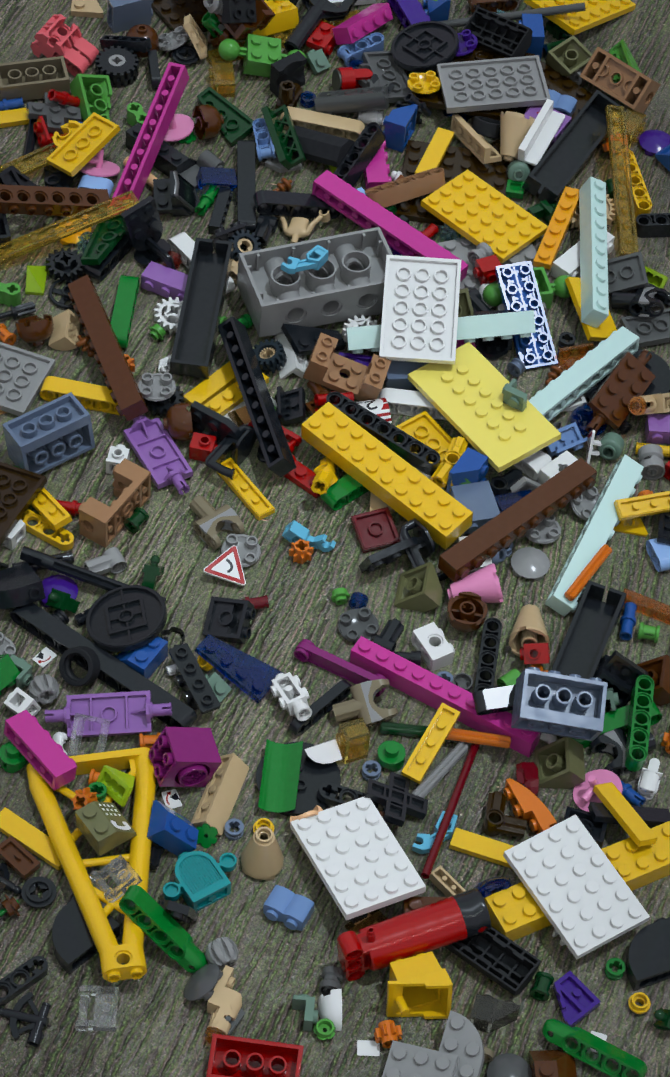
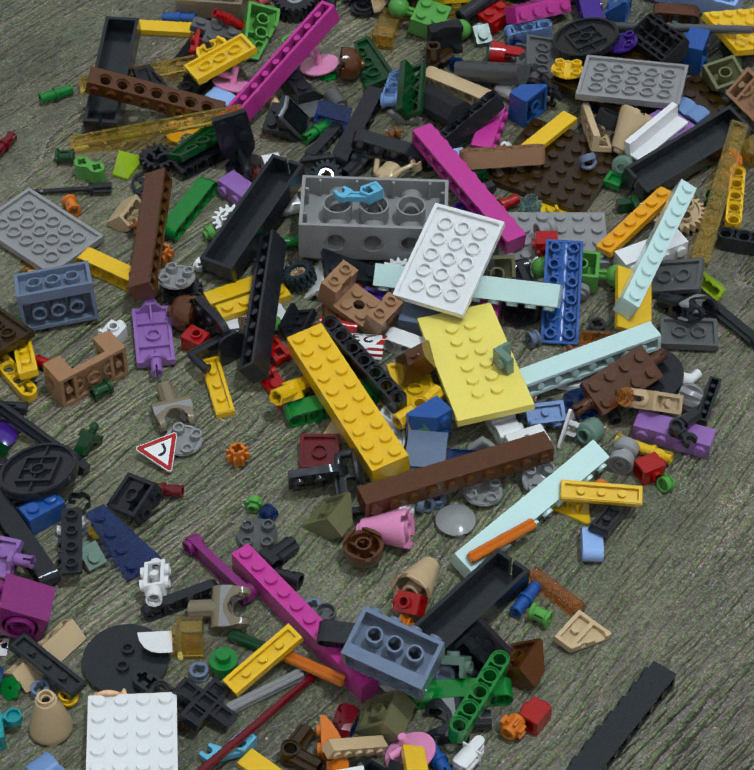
camera: 25 degrees right, 5 degrees down
(35, 329) = (98, 205): reddish brown cylinder -> none
(110, 561) = (58, 420): light grey piece -> none
(235, 804) = (47, 666): none -> black tile
(280, 776) = (105, 651): green sticker -> none
(296, 531) = (242, 435): medium azure piece -> none
(425, 640) = (317, 572): white brick -> none
(426, 419) = (415, 363): none -> reddish brown slope
(484, 215) = (569, 195): yellow plate -> none
(485, 171) = (588, 157): none -> sand blue tile
(488, 654) = (368, 591): black beam -> none
(502, 484) = (461, 440): black piece -> none
(552, 800) = (355, 747): none -> tan piece

